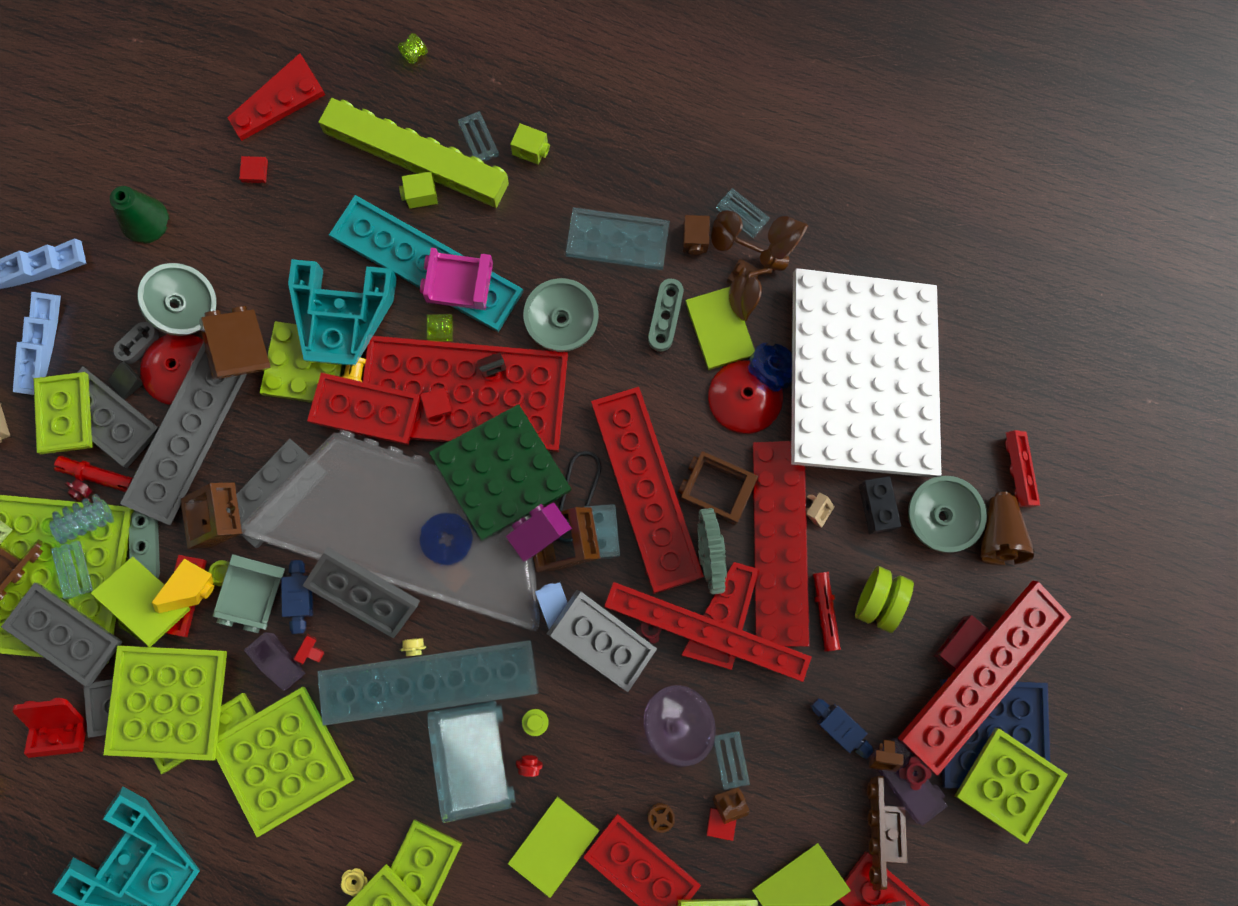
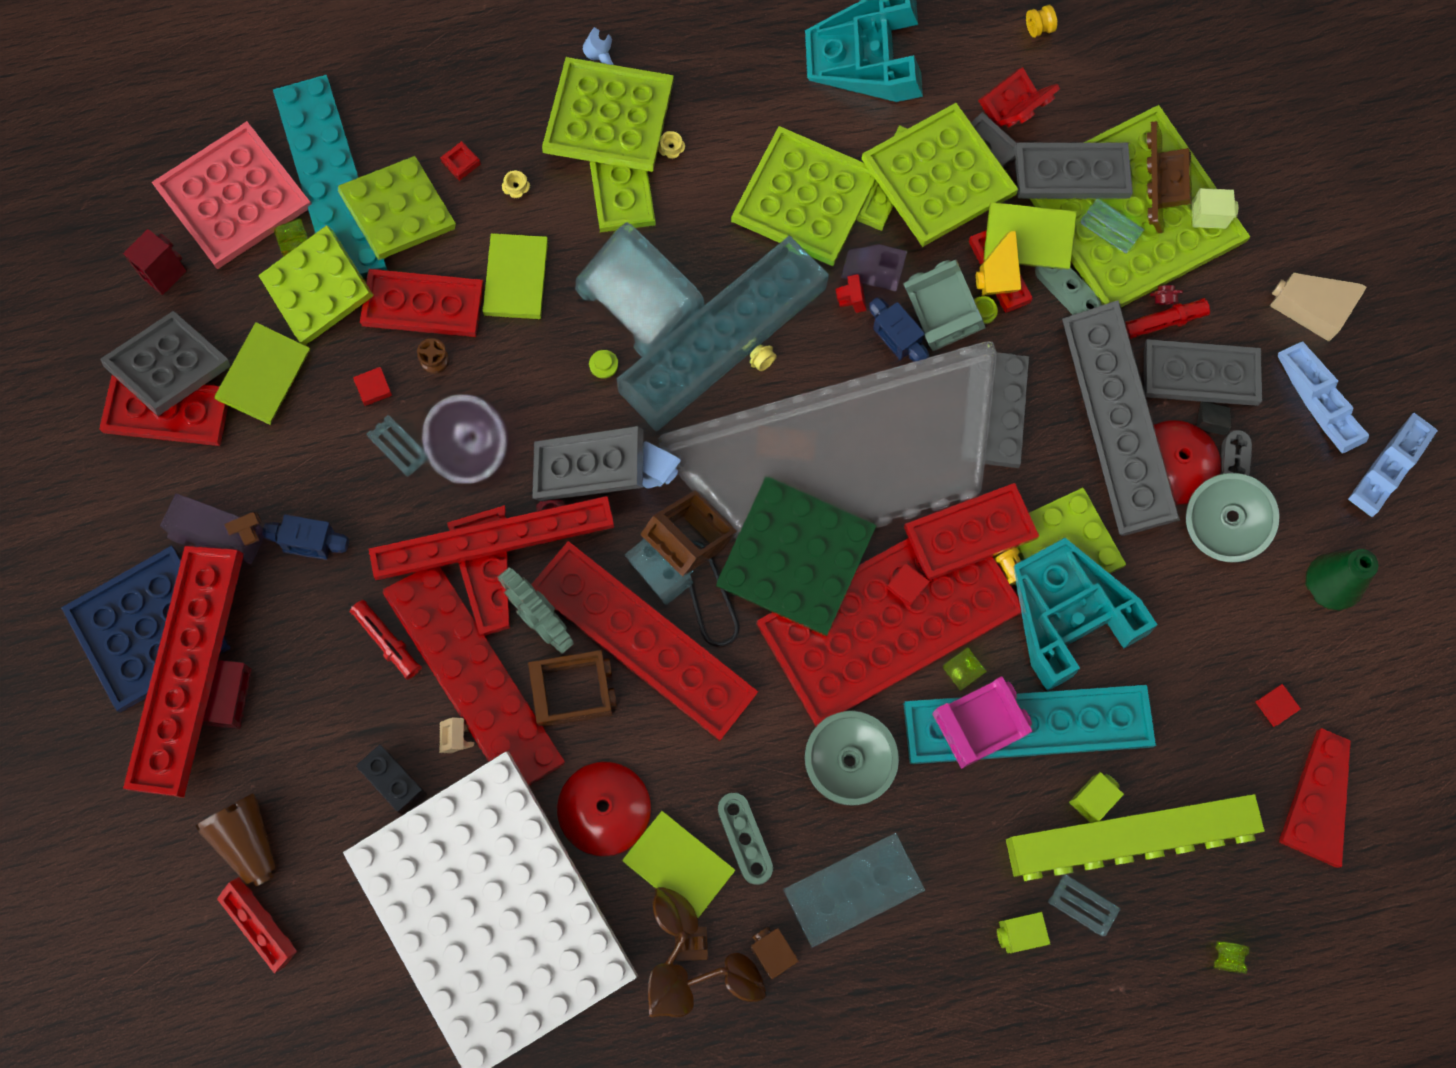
camera: 145 degrees right, 5 degrees down
(62, 413) = (1240, 348): lime tile -> none
(81, 519) = (1140, 267): clear light blue piece -> none
(223, 524) = (1020, 334): reddish brown window -> none
(233, 343) = (1140, 503): reddish brown slope -> none
(361, 592) = (842, 363): dark grey plate -> none
(433, 531) = (797, 441): clear blue plate -> none
(491, 365) = (884, 658): slope -> none
(529, 766) = (583, 323): red plate -> none
(538, 531) = (716, 515): magenta brick -> none
(731, 805) = (372, 404): reddish brown tile -> none
(749, 206) = (738, 1019): clear light blue tile -> none
(762, 368) = (605, 843): clear blue plate -> none
(884, 599) = (331, 681): lime wheel -> none
(888, 834) = (206, 469): reddish brown bracket -> none
(922, 773) = (202, 526): dark red plate -> none
(963, 512) = (292, 812): sand green dish -> none
(1011, 785) = (105, 583): lime plate -> none

